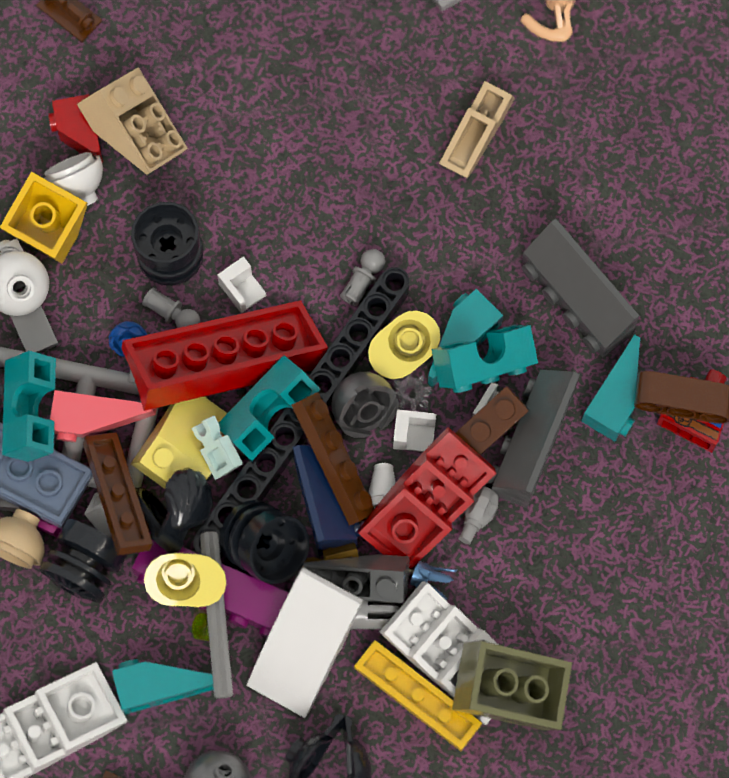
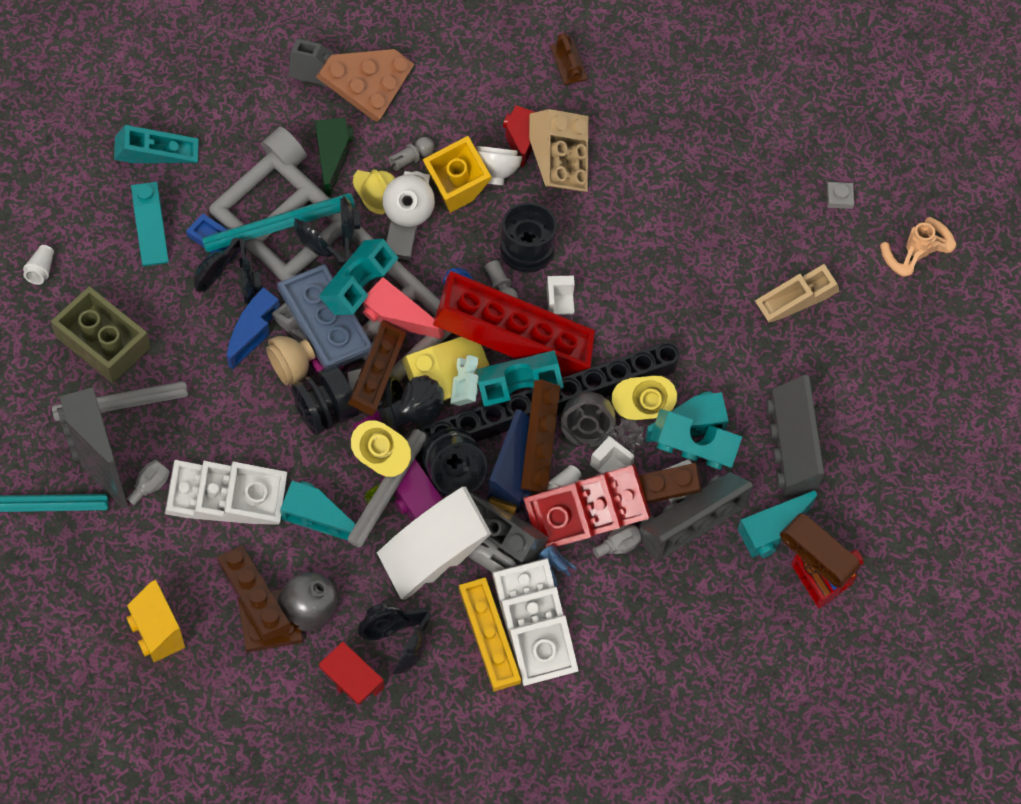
camera: 30 degrees right, 10 degrees down
(372, 263) = (660, 335): light grey pin -> none
(512, 685) = (558, 664): olive brick -> none

